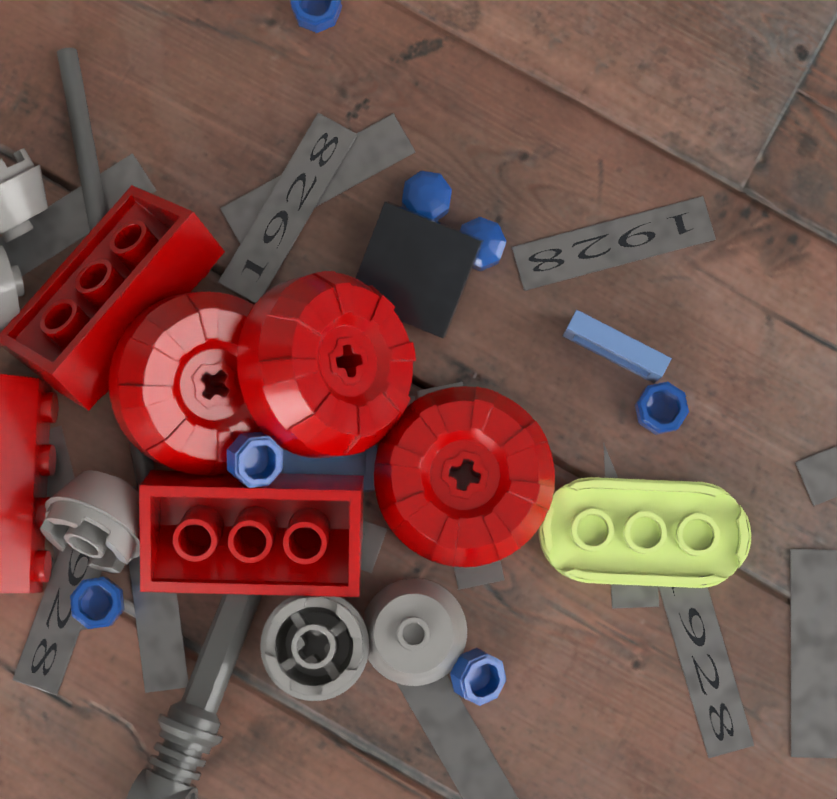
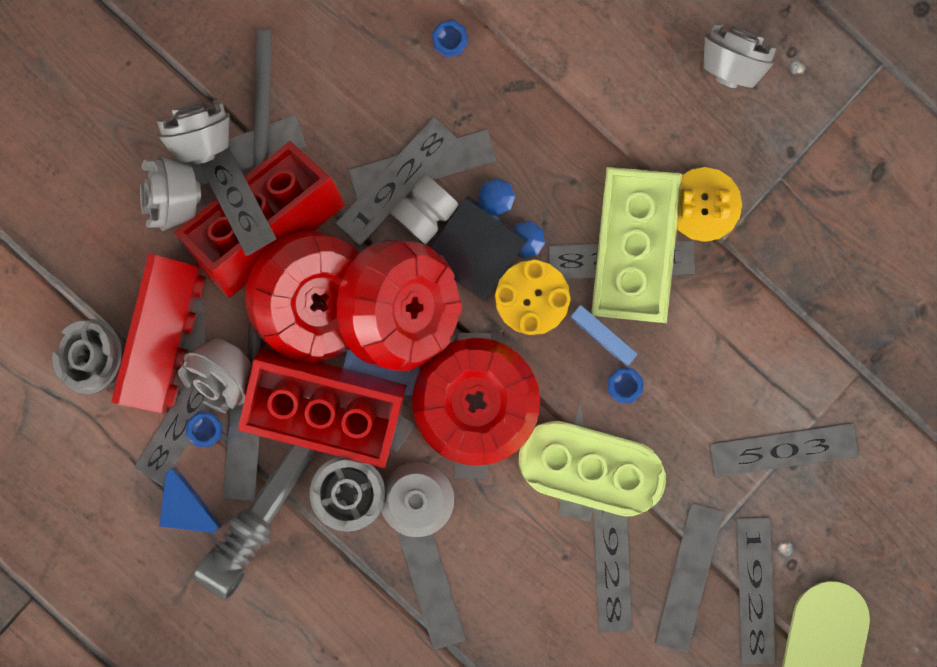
camera: 15 degrees right, 5 degrees up
(72, 275) = (238, 202): none -> flat silver sticker
(90, 717) = (184, 507): none -> blue slope
(254, 459) = (335, 359): blue tile -> none
(336, 226) = (424, 209): none -> light grey wheel
(478, 676) = (453, 540): blue tile -> none
(528, 330) = (520, 284): none -> yellow plate
(630, 216) = (636, 244): none -> yellowish green tile
(683, 148) = (723, 204): none -> yellow plate

